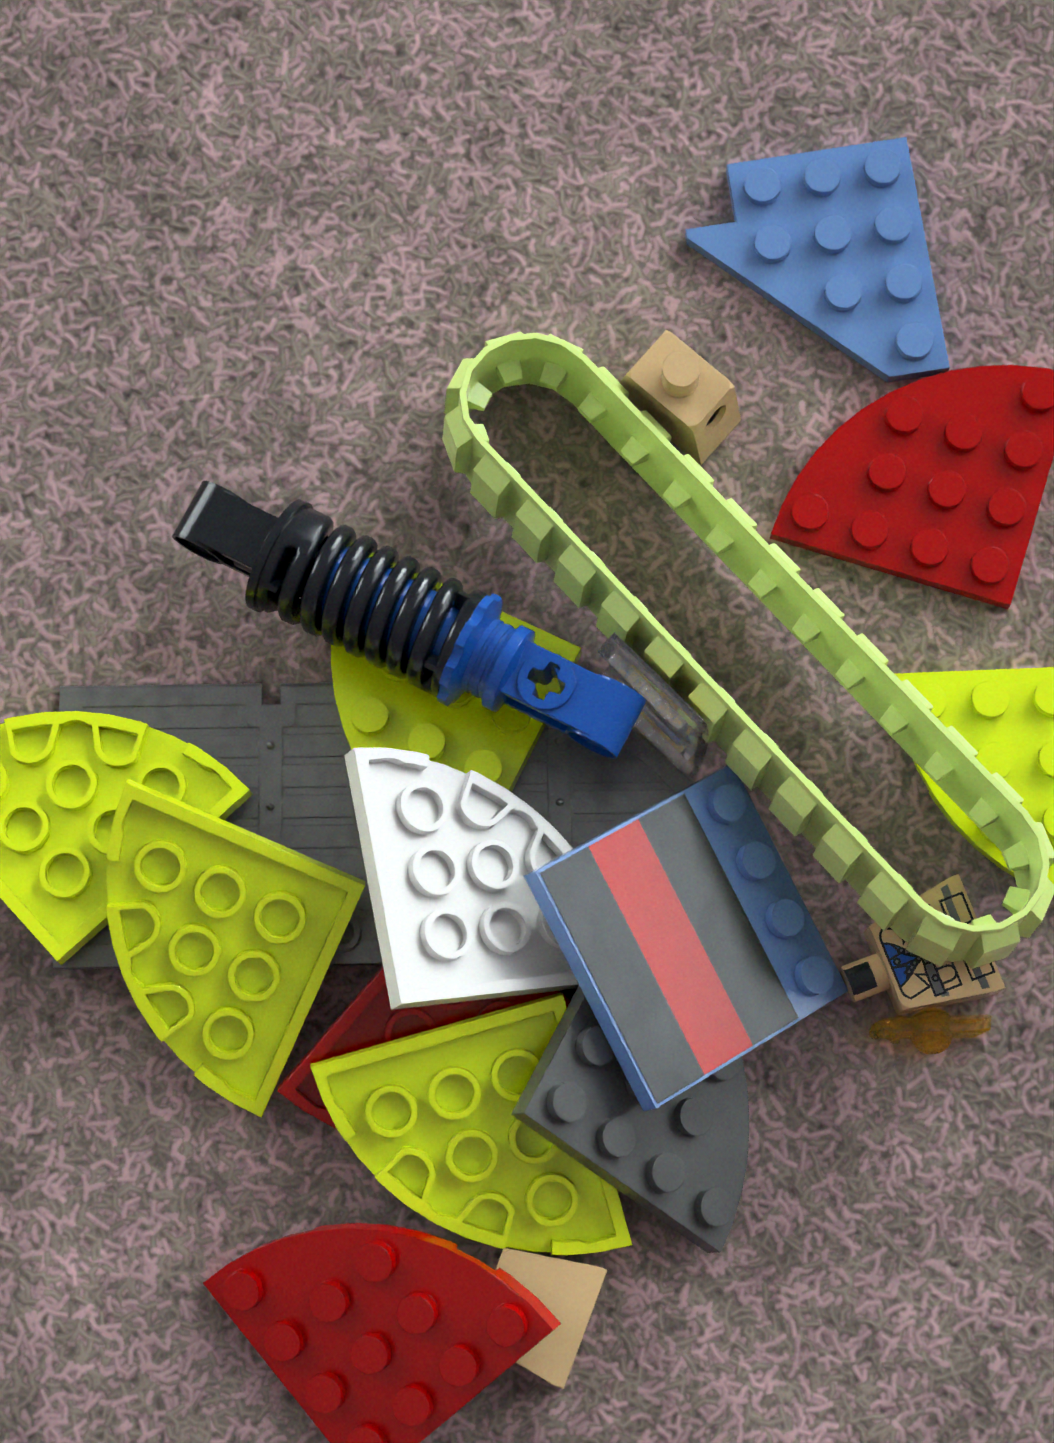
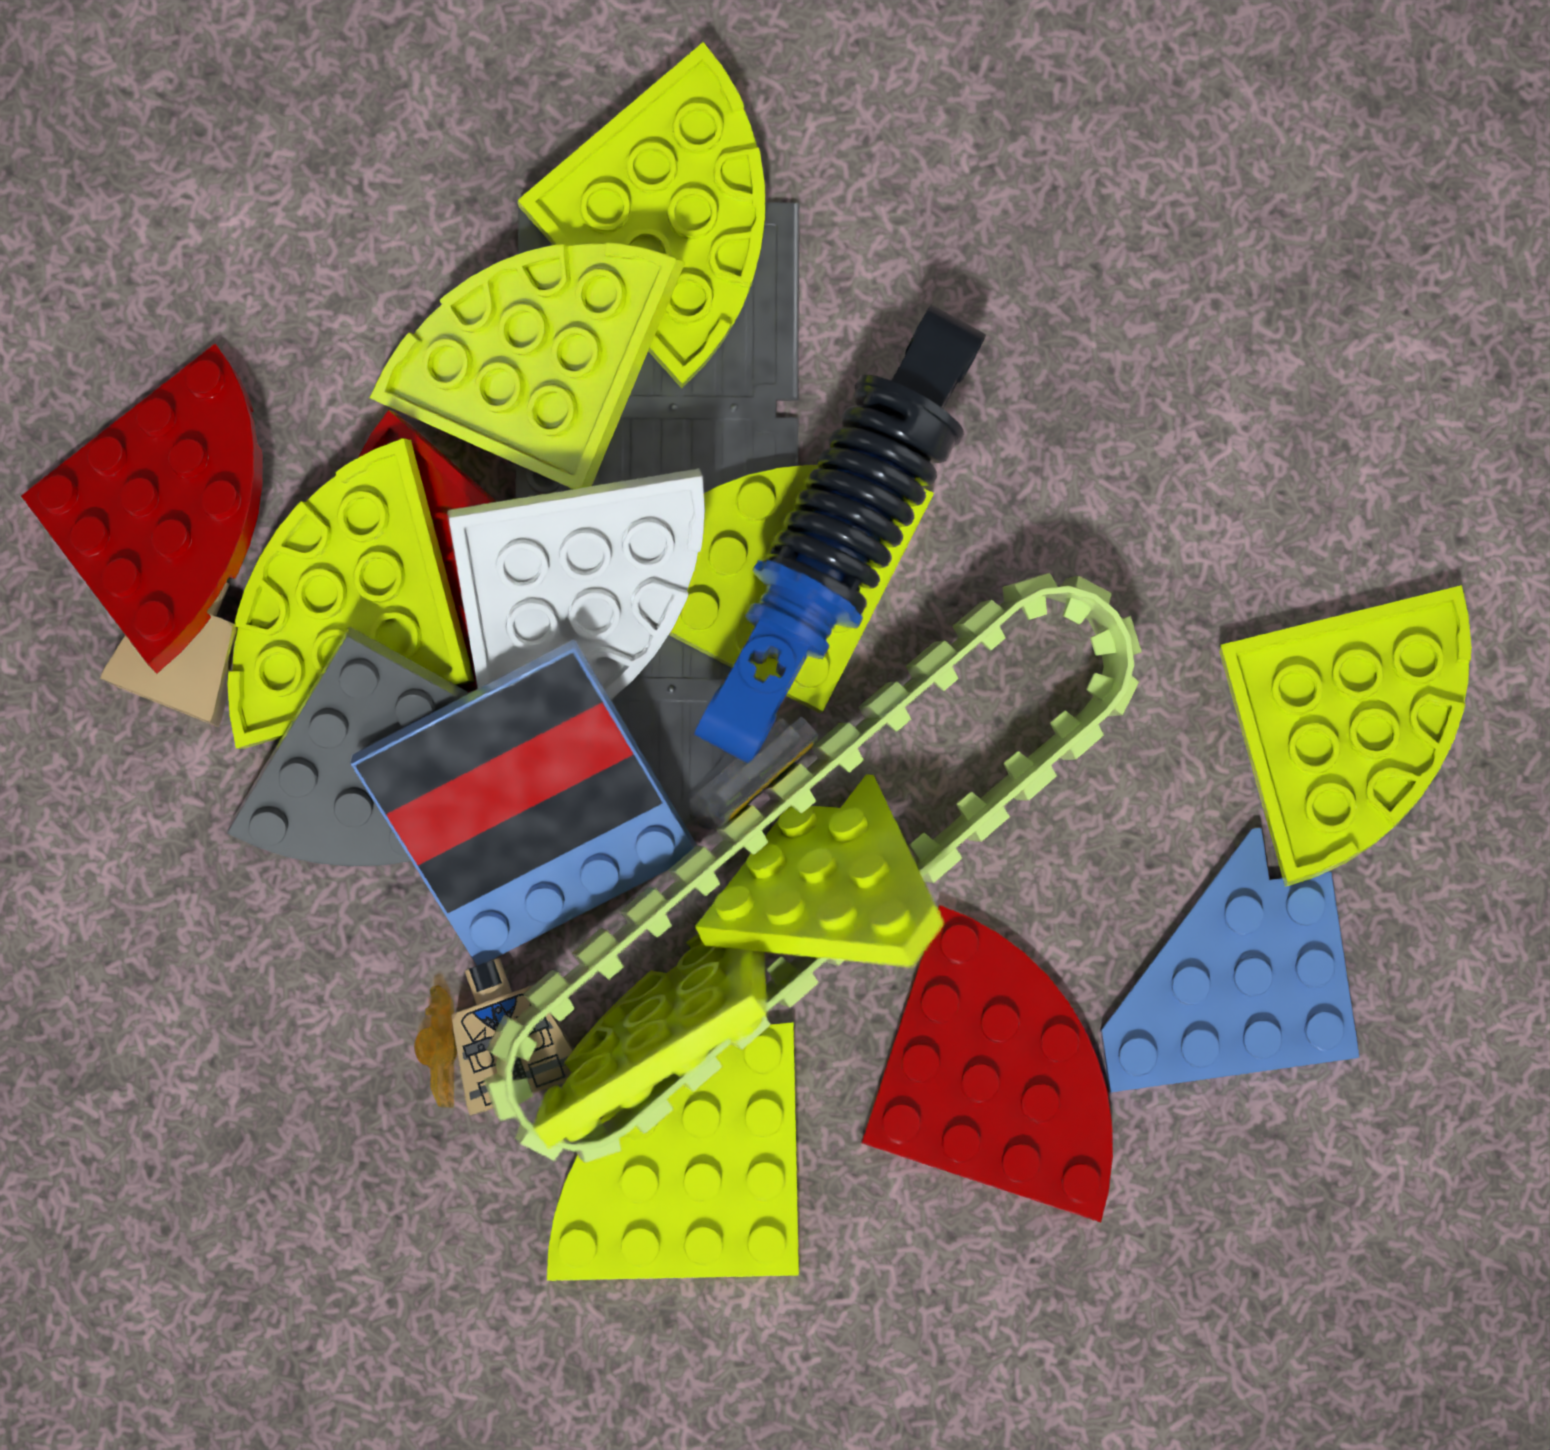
camera: 90 degrees right, 5 degrees up
(583, 146) = (1349, 722): none -> neon yellow plate
(683, 395) = (1078, 815): tan torso -> none
(773, 613) = (829, 888): none -> neon yellow wing
(913, 782) = (653, 1031): none -> neon yellow plate

